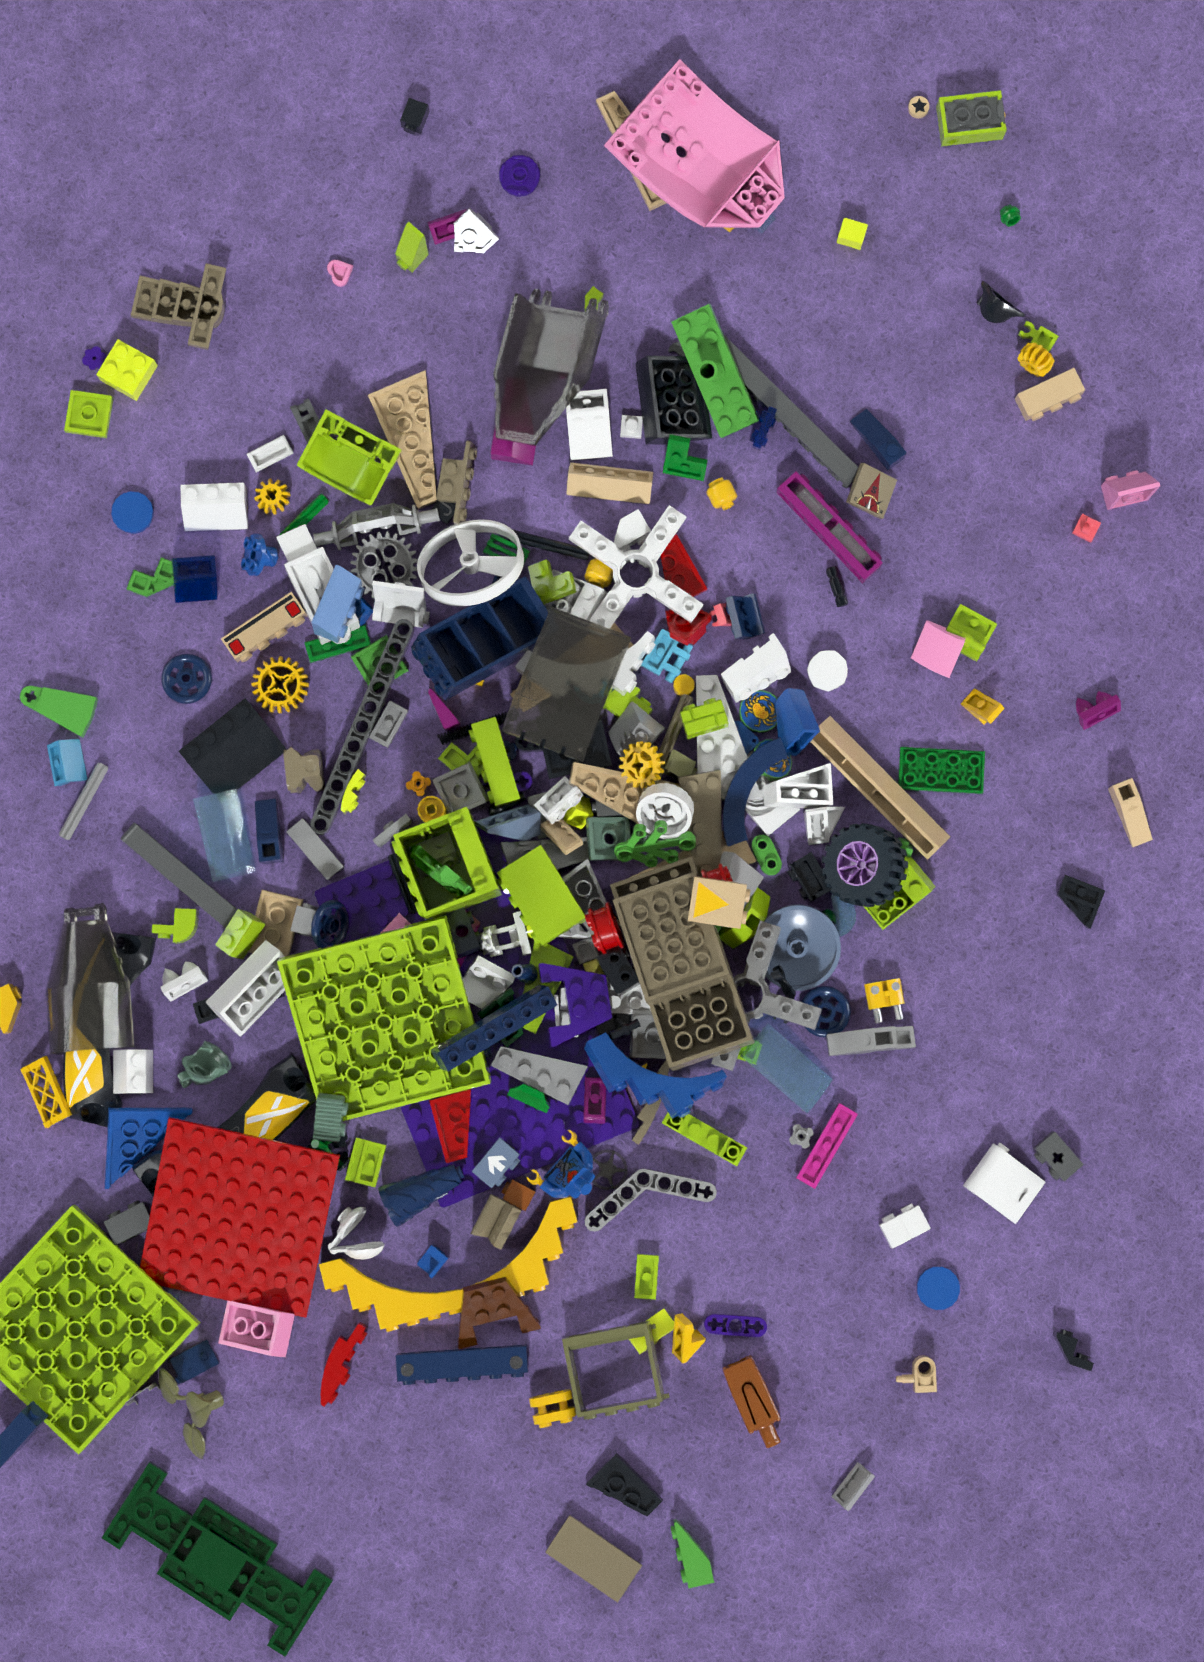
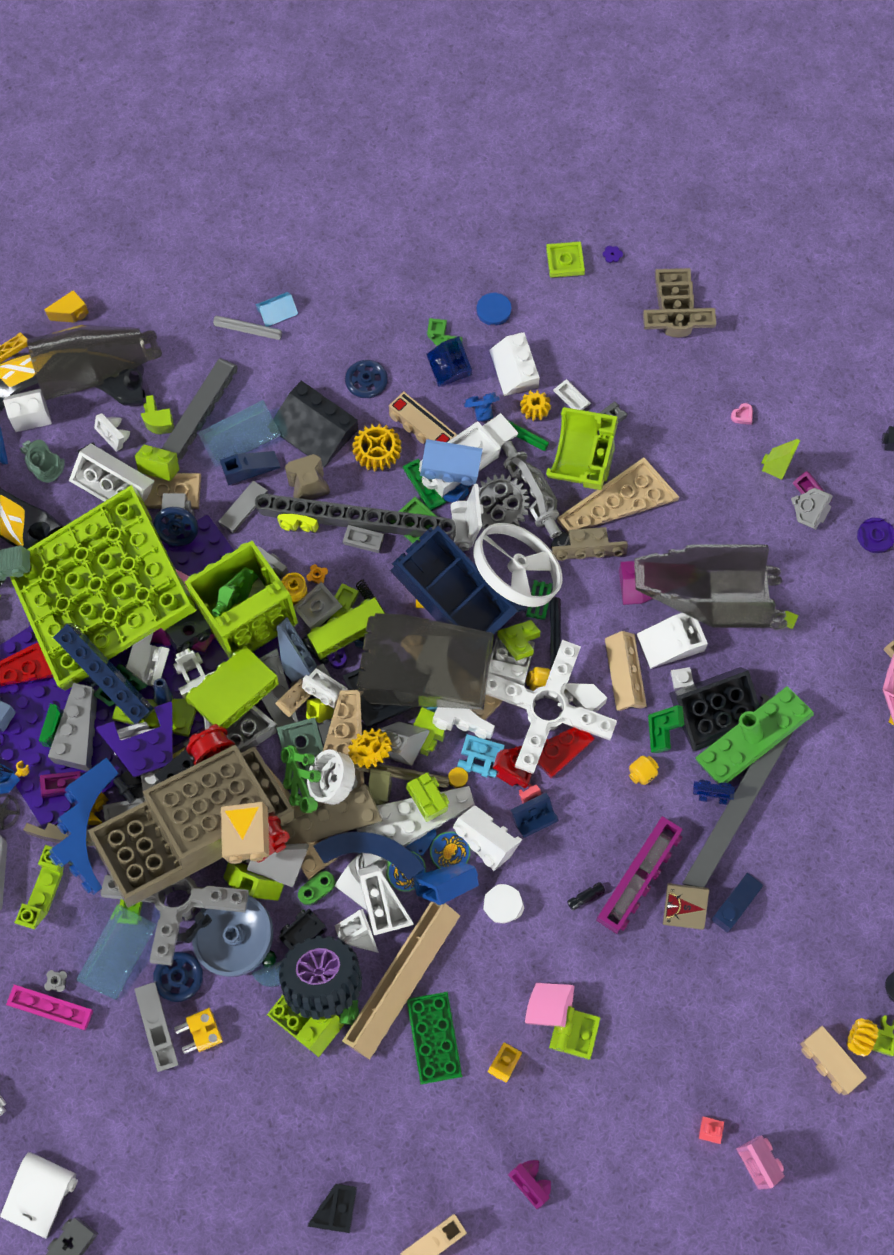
camera: 75 degrees right, 15 degrees down
(65, 708) = (319, 296): bright green piece -> none
(127, 370) = (609, 276): neon yellow brick -> none
(446, 717) = (381, 581): magenta slope -> none

